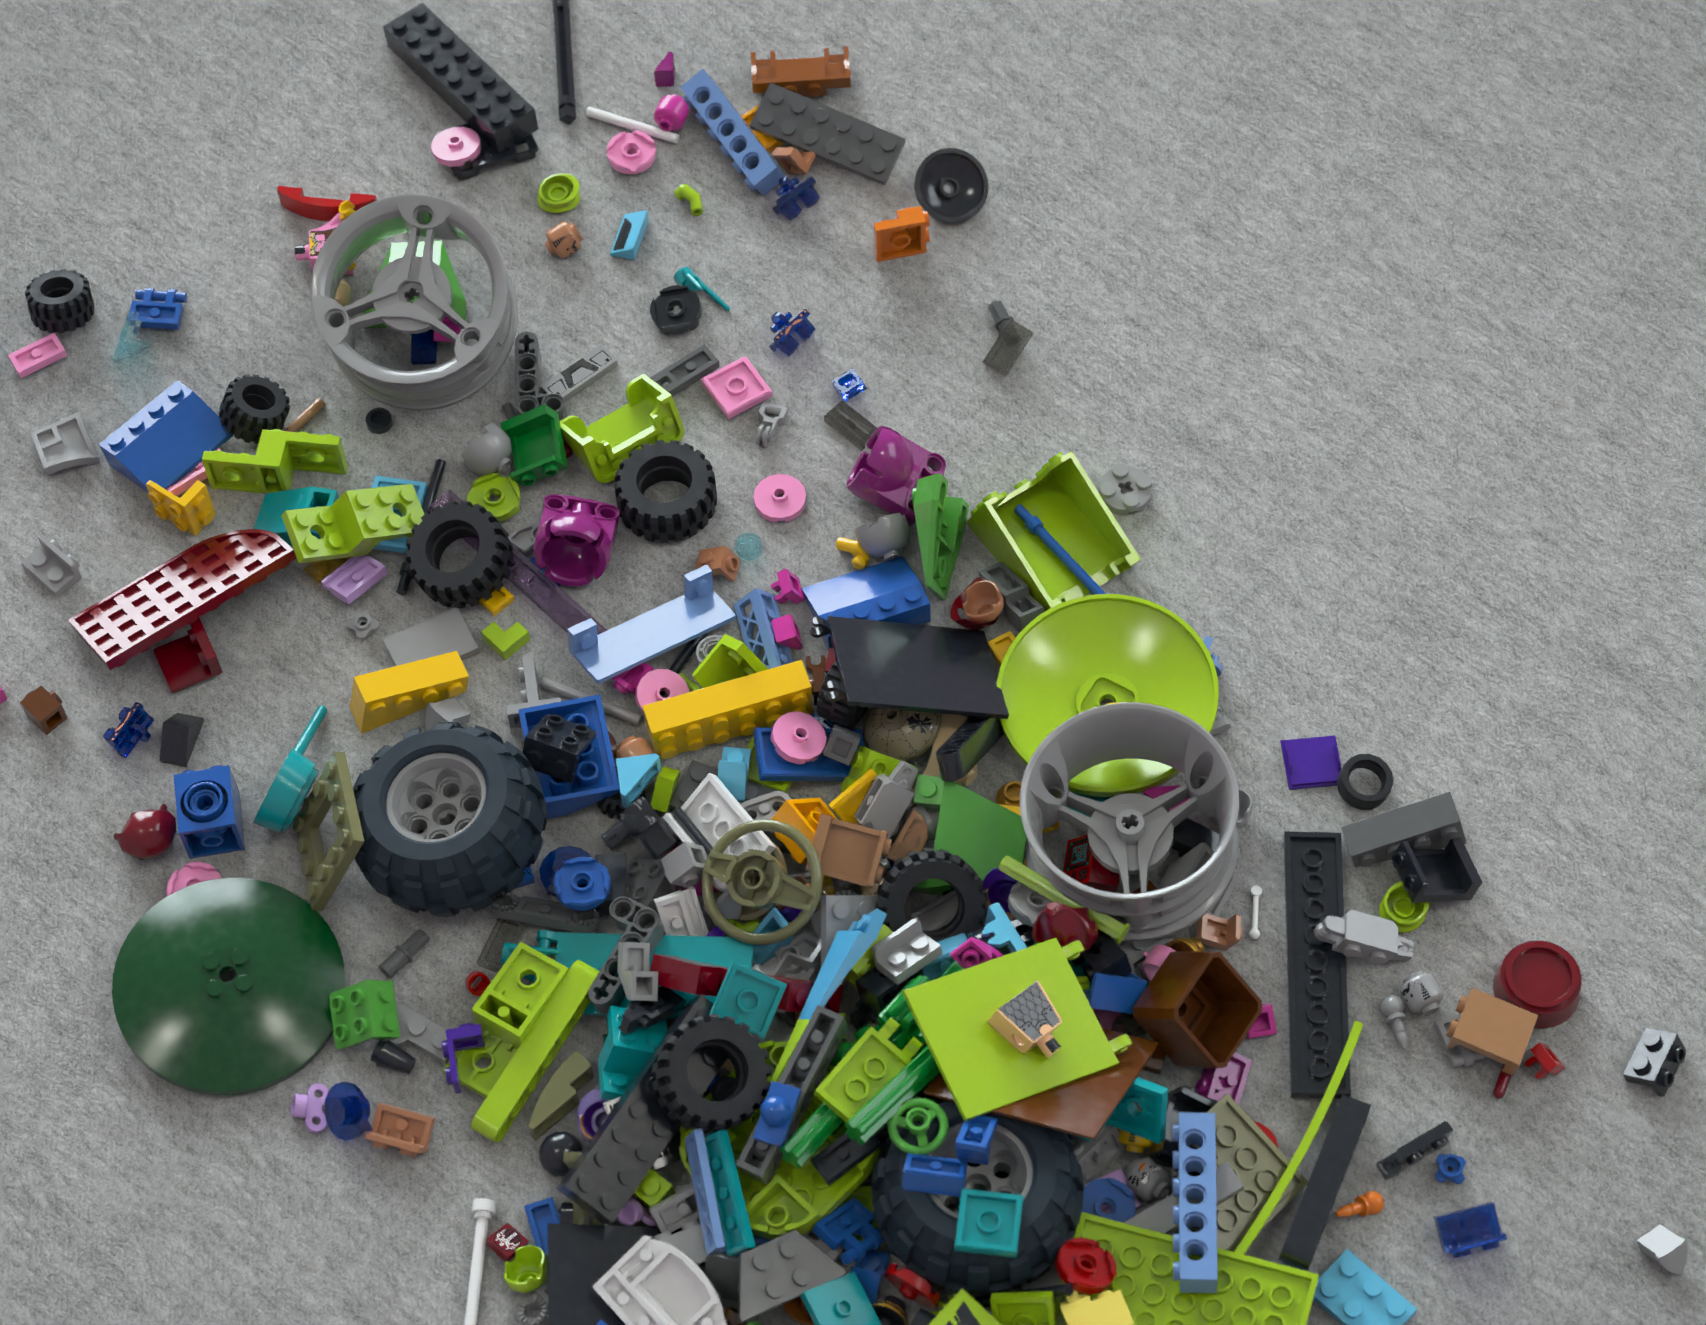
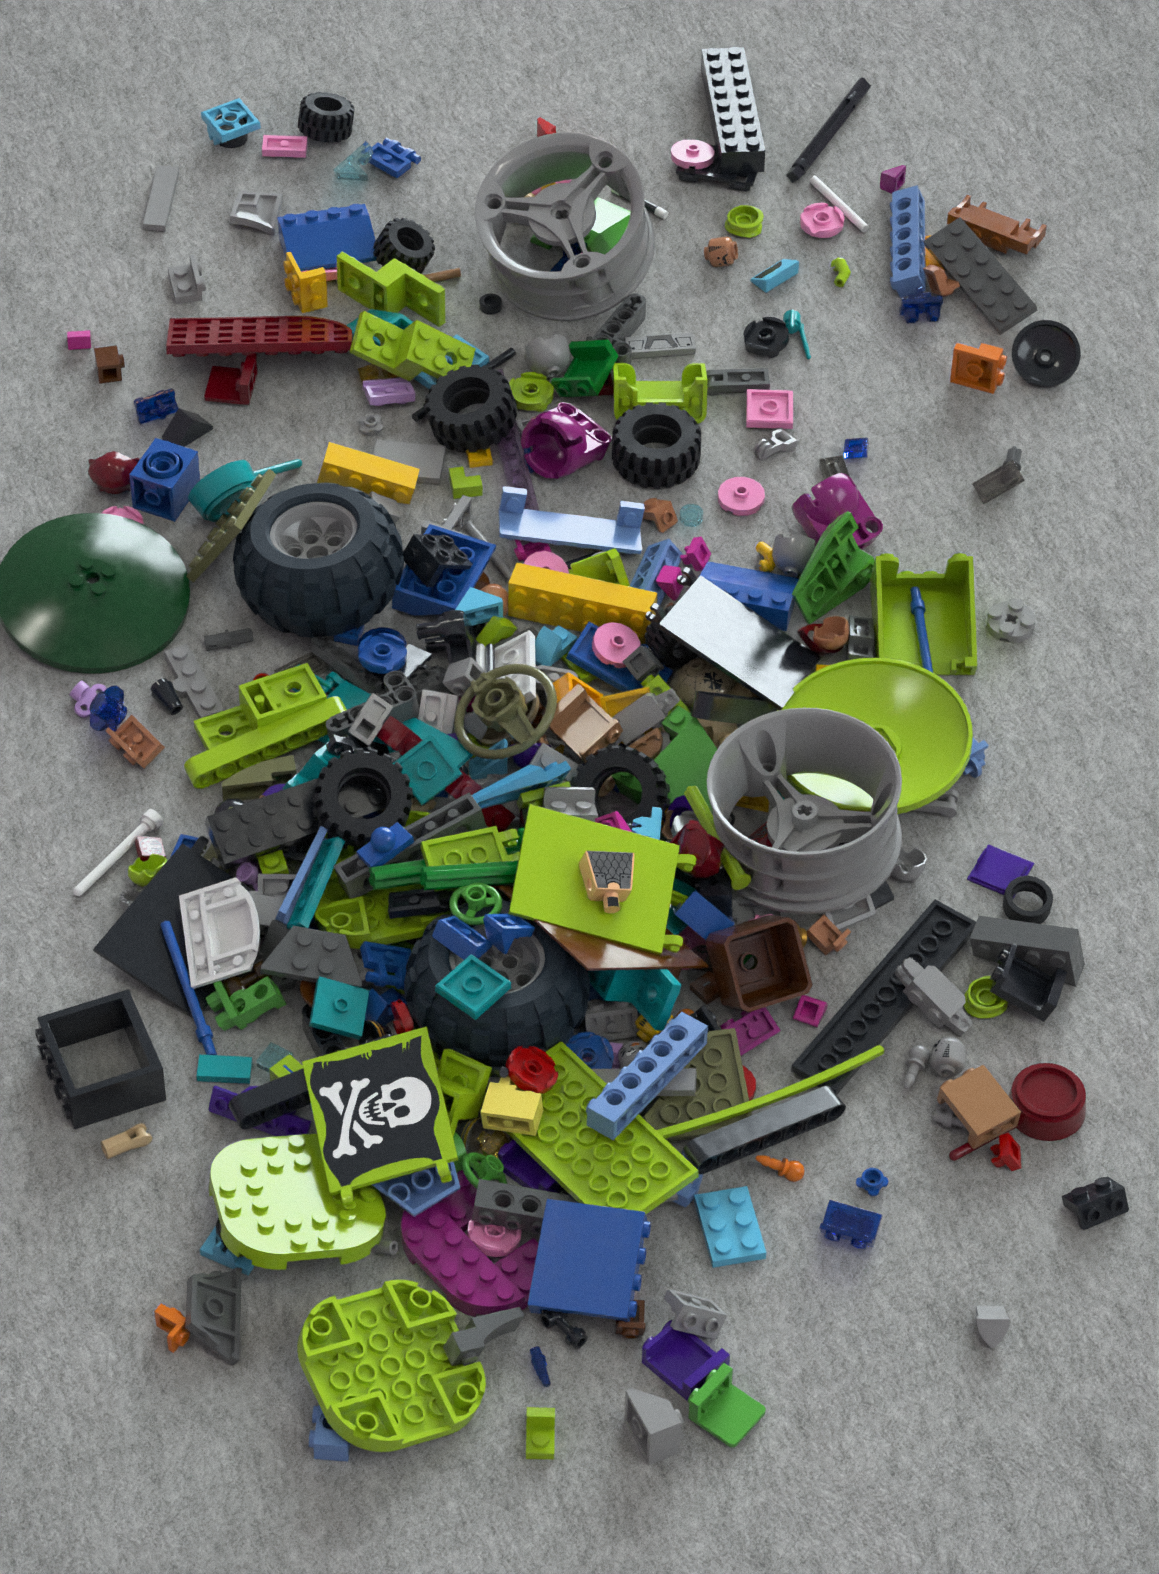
camera: 30 degrees right, 10 degrees down
(364, 1013) = (169, 654): bright green bracket -> none
(461, 1038) = (214, 704): dark purple bracket -> none
(671, 113) = (872, 207): dark pink head -> none
(784, 338) = (840, 388): clear blue hips -> none
(1256, 892) = (881, 930): white hinge -> none
(1413, 1151) = (854, 1152): black hinge -> none

